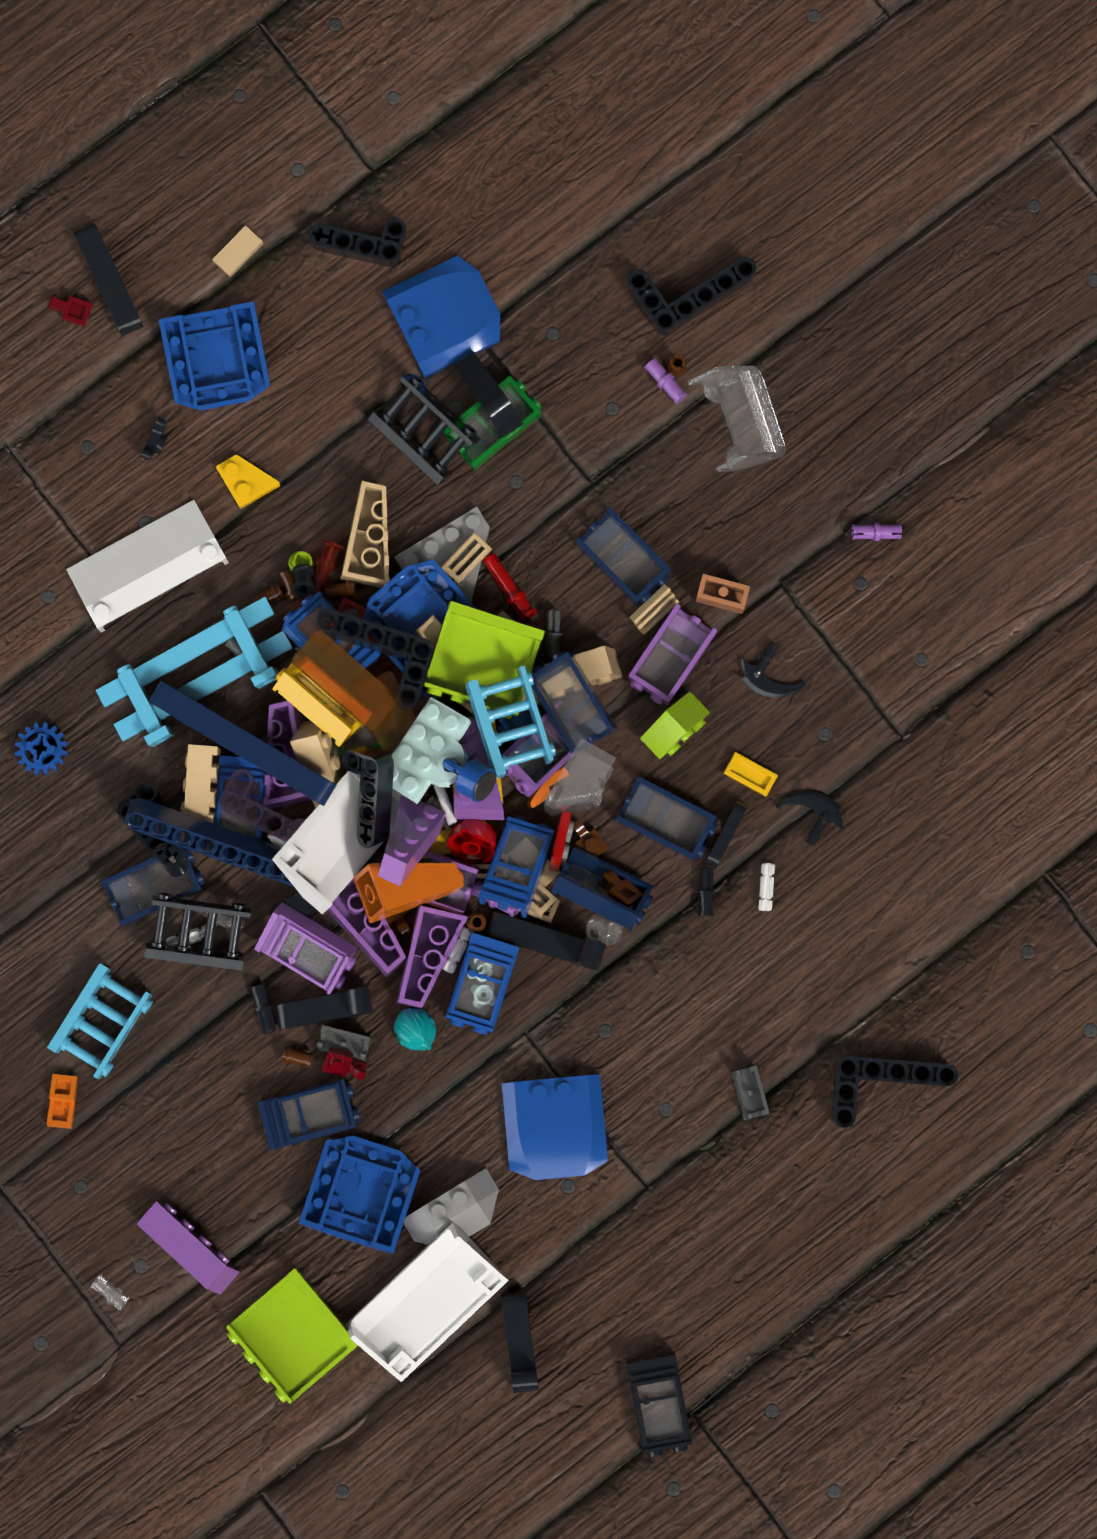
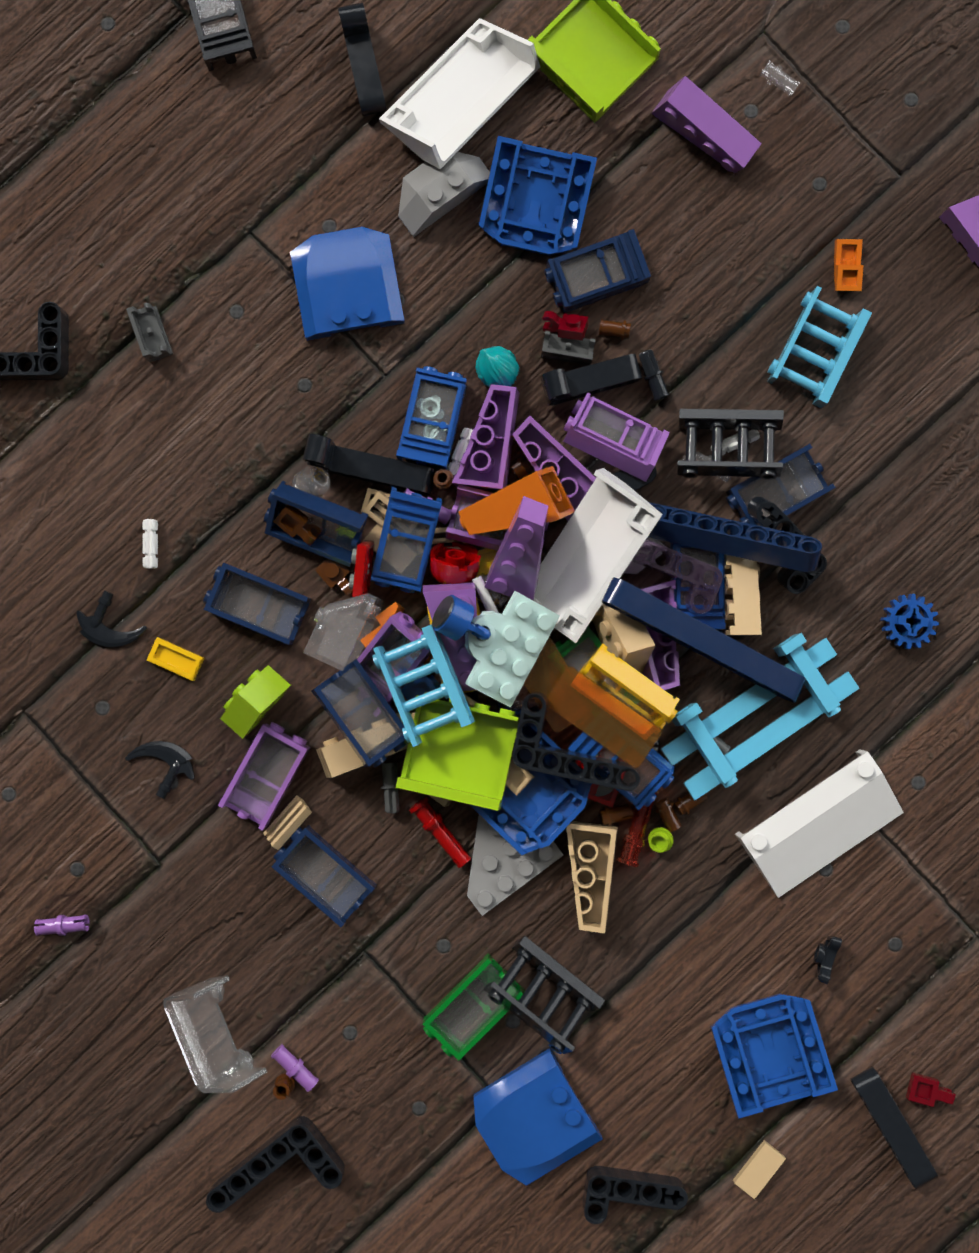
camera: 175 degrees right, 5 degrees up
(245, 480) = (726, 922): yellow wing -> none
(303, 579) = (655, 819): black bush -> none
(375, 792) = (559, 600): black beam -> none
(452, 573) = (500, 842): tan tile -> none
(488, 393) = (479, 1039): black beam -> none
(706, 892) = (211, 533): black axle -> none
(722, 593) = (215, 845): nougat brick -> none
(726, 834) = (194, 593): black beam -> none

